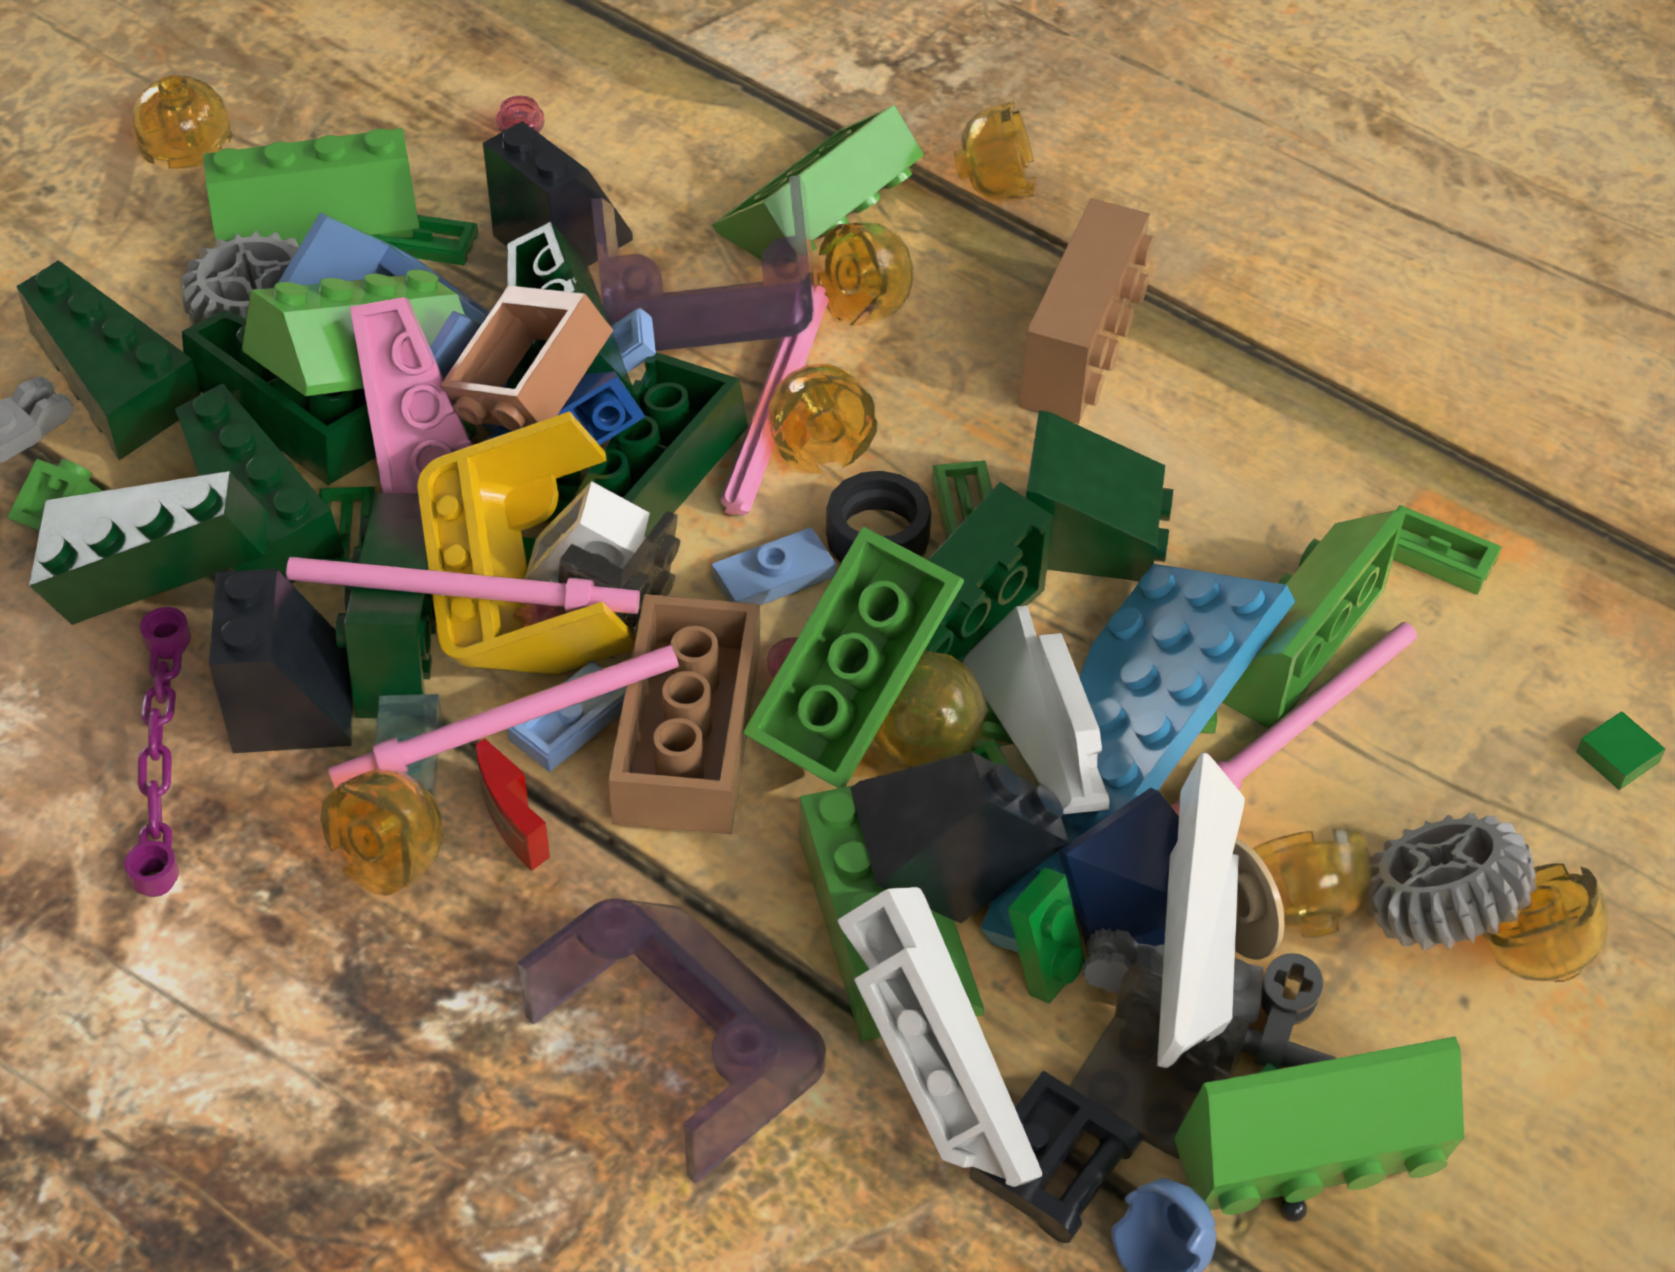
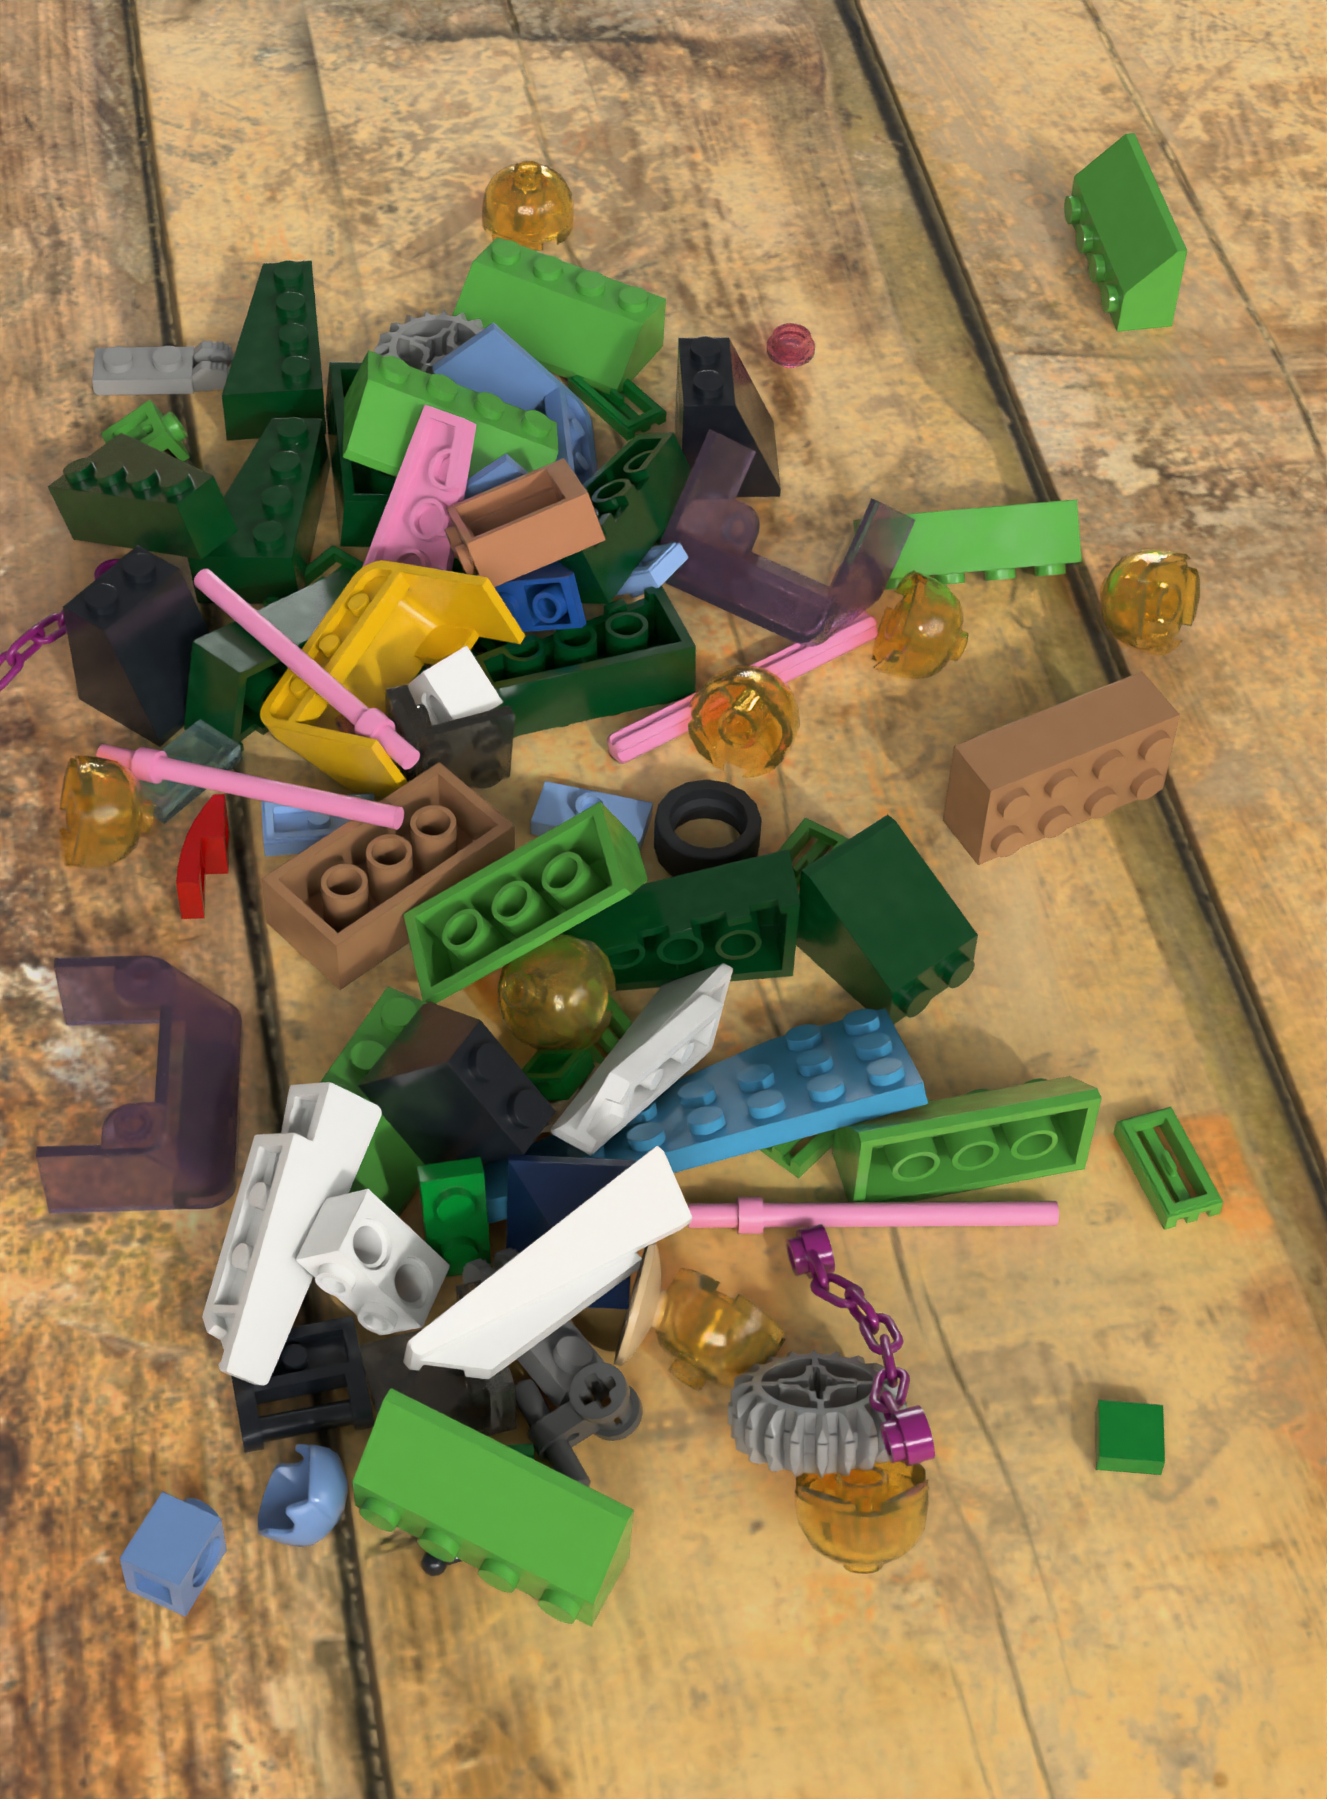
camera: 40 degrees right, 0 degrees up
(1029, 1014) = (373, 1263): none -> white brick
(1568, 837) = (905, 1431): none -> magenta piece

